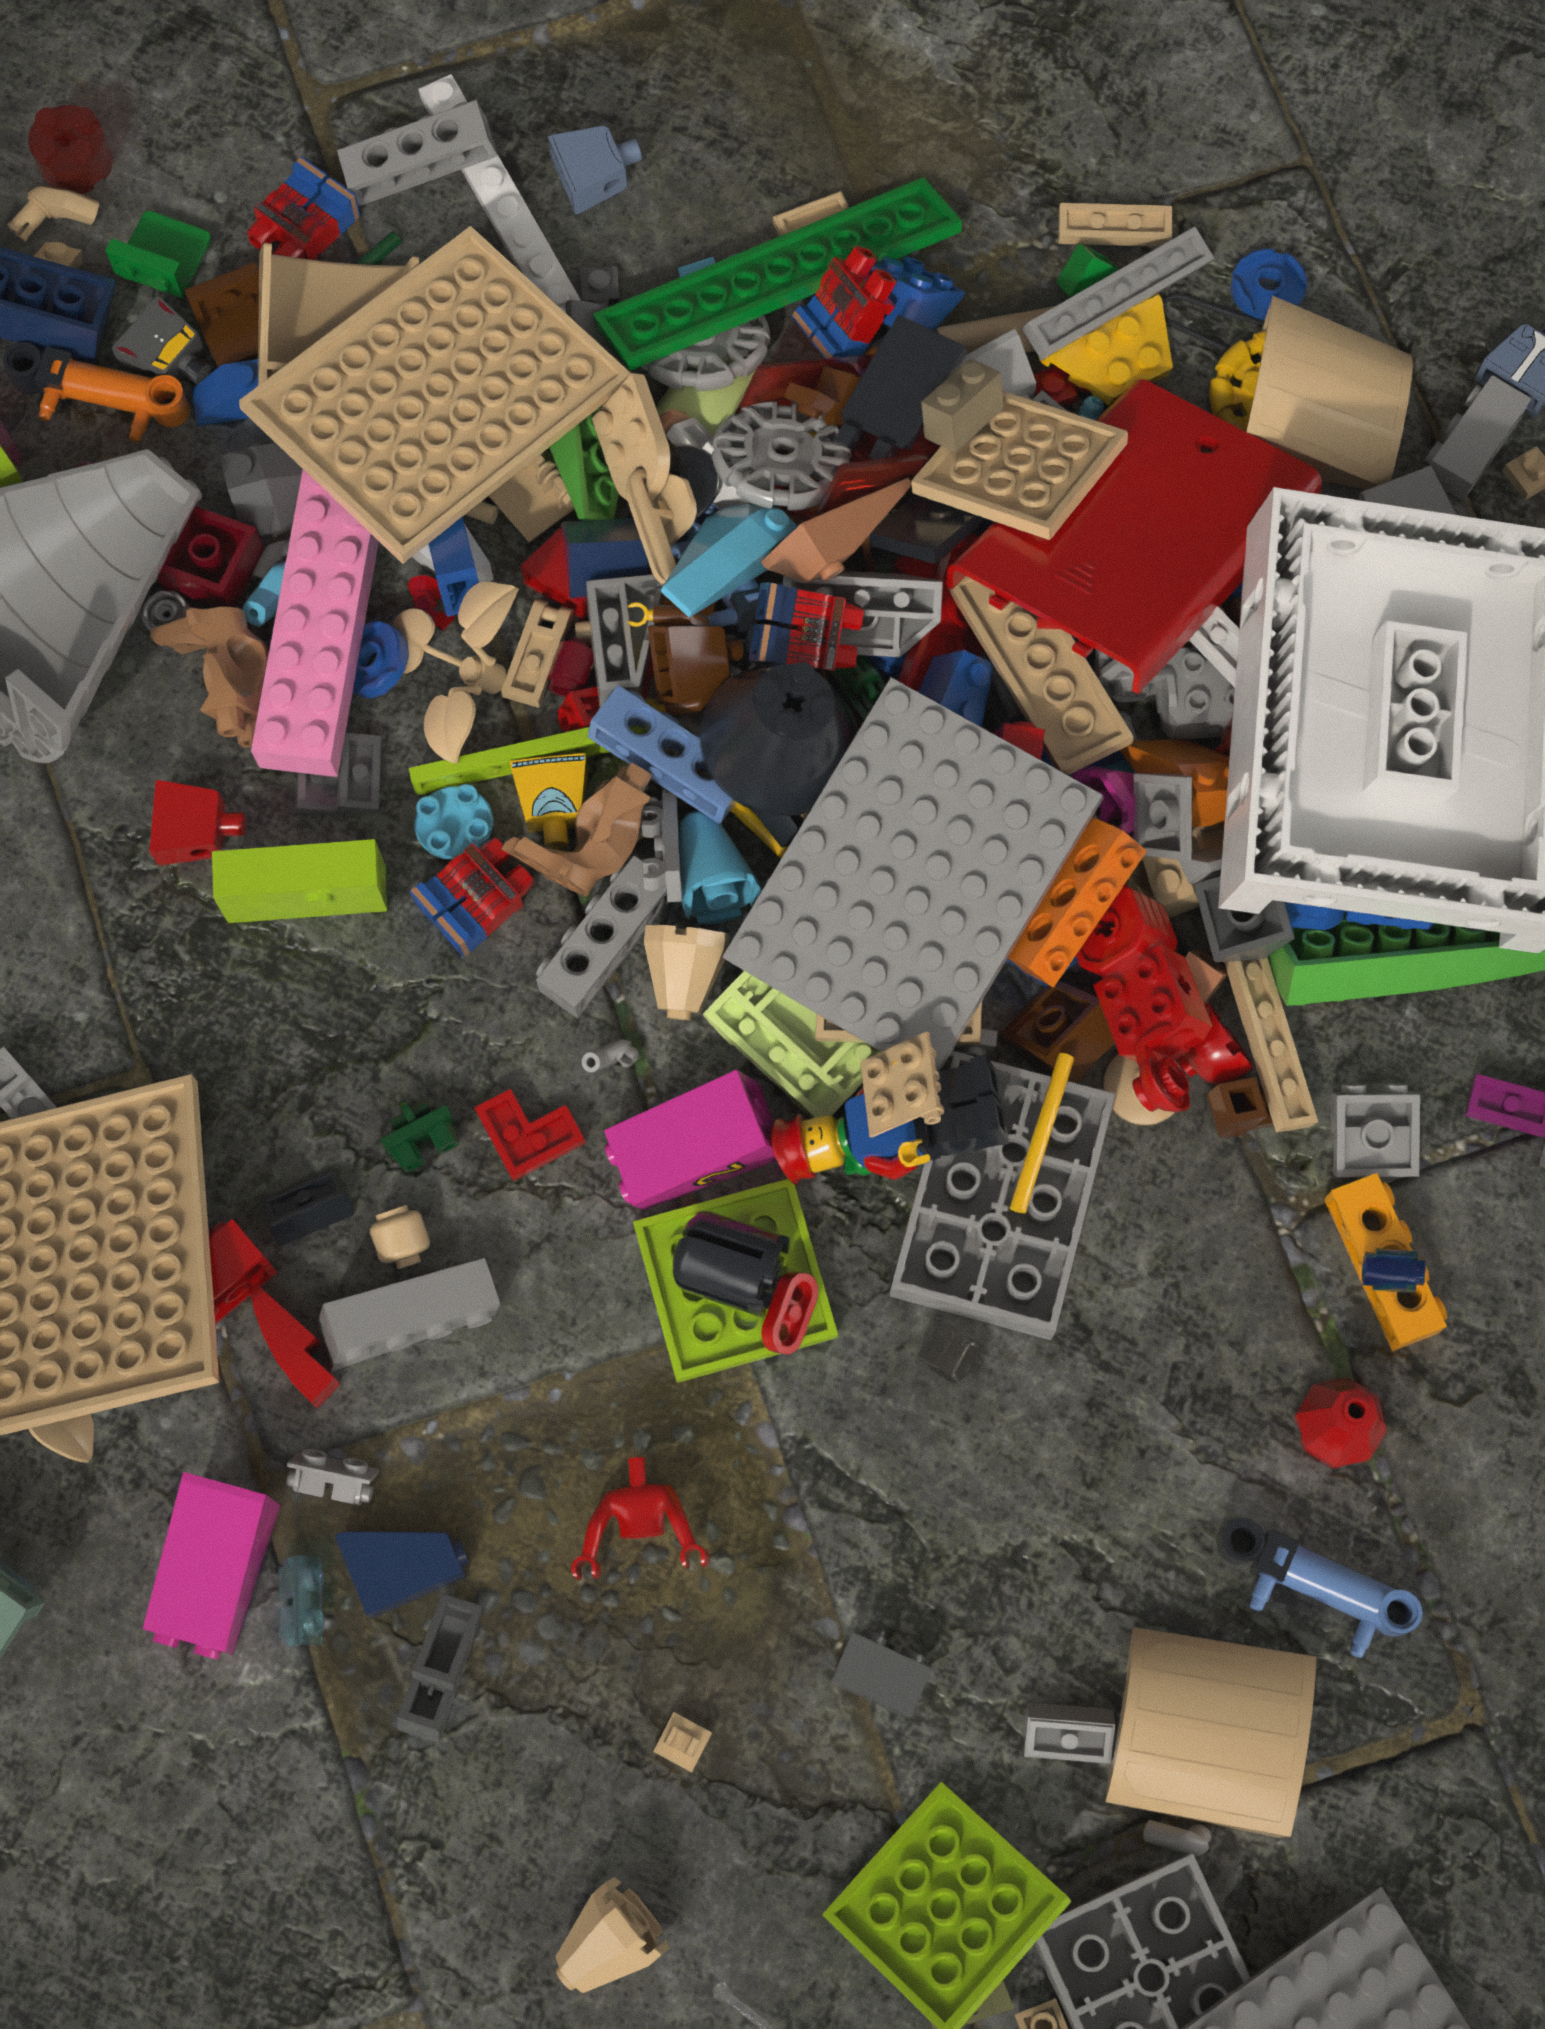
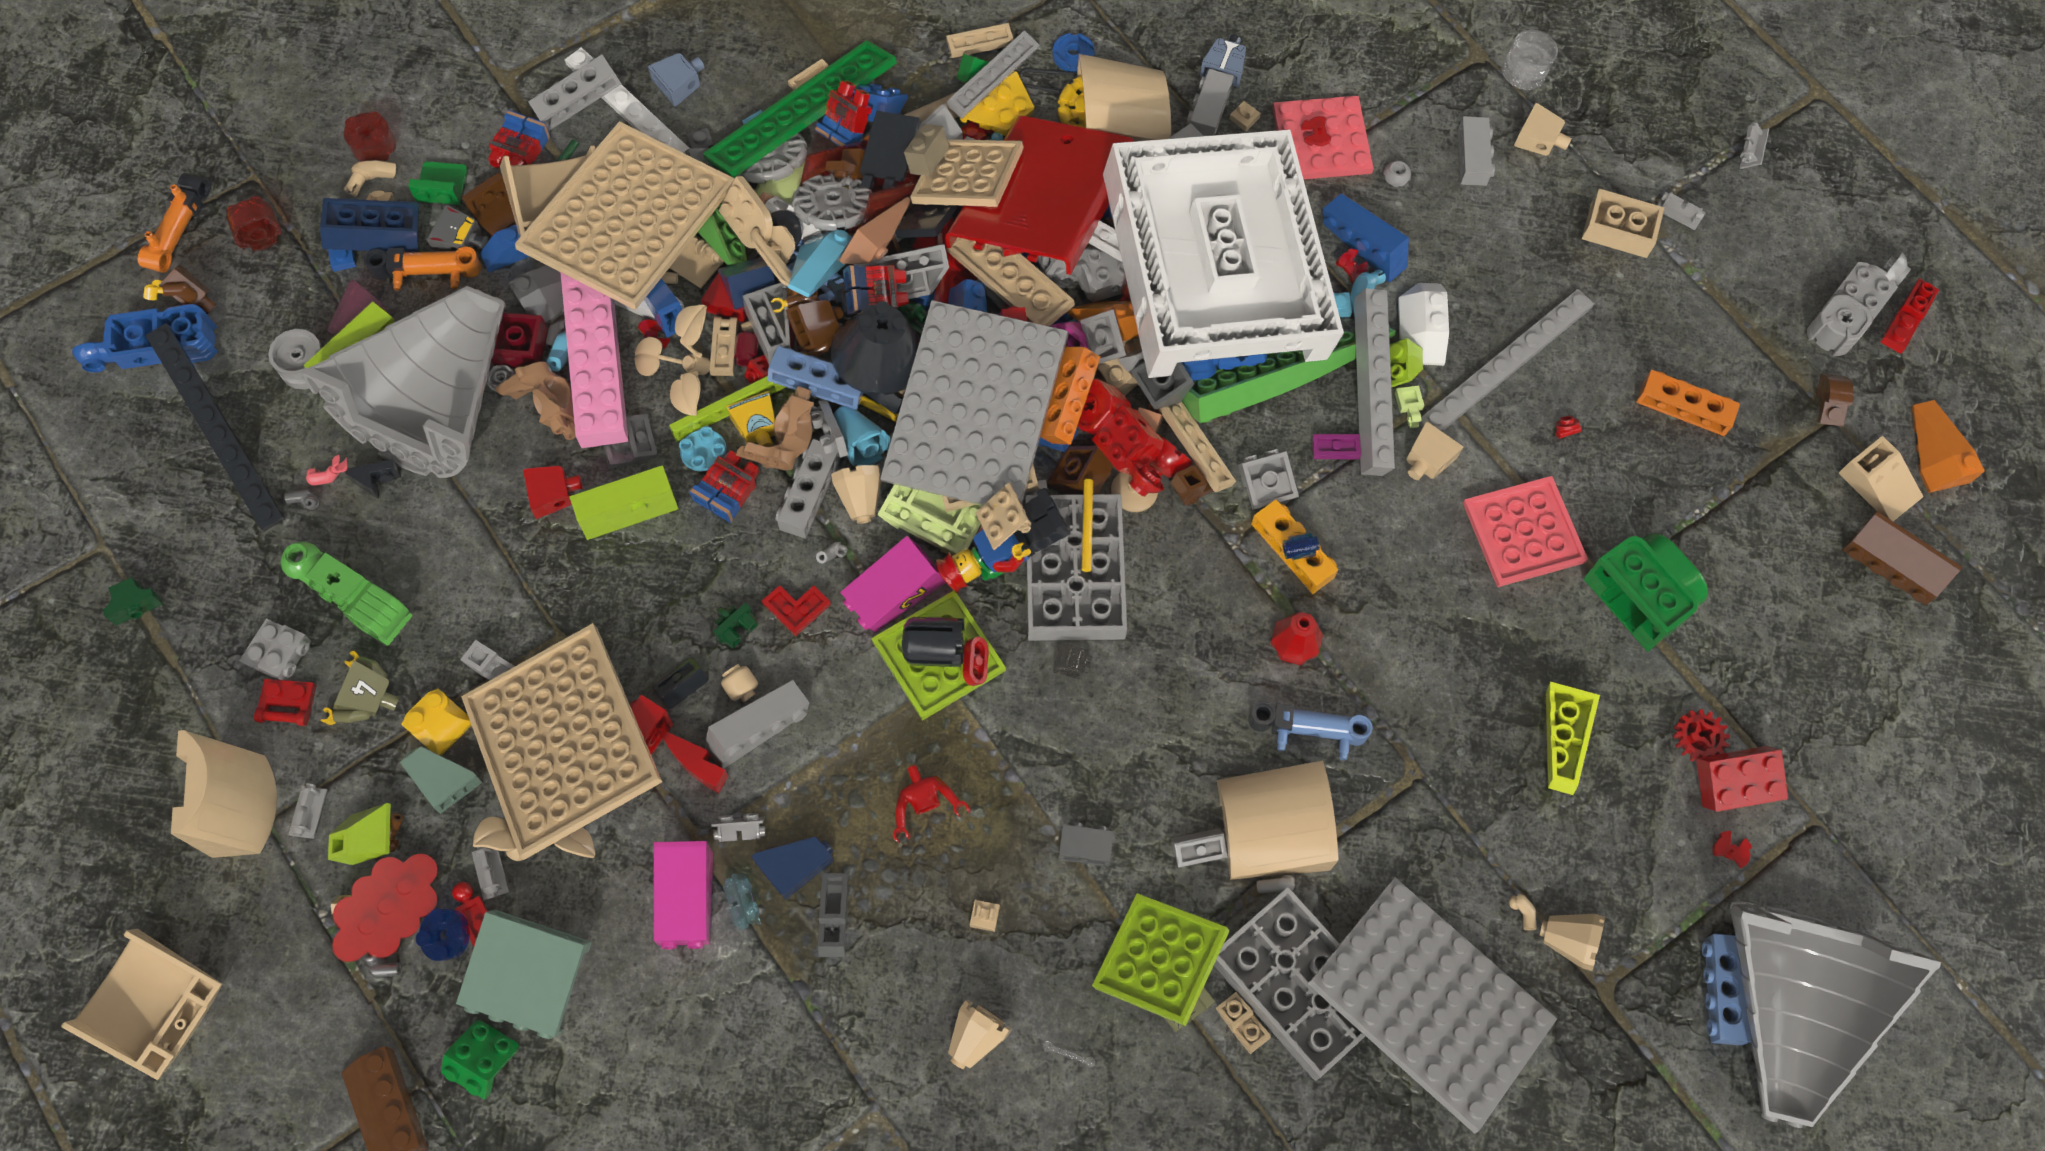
camera: 20 degrees left, 5 degrees down
(390, 660) = (640, 371): blue tile -> none

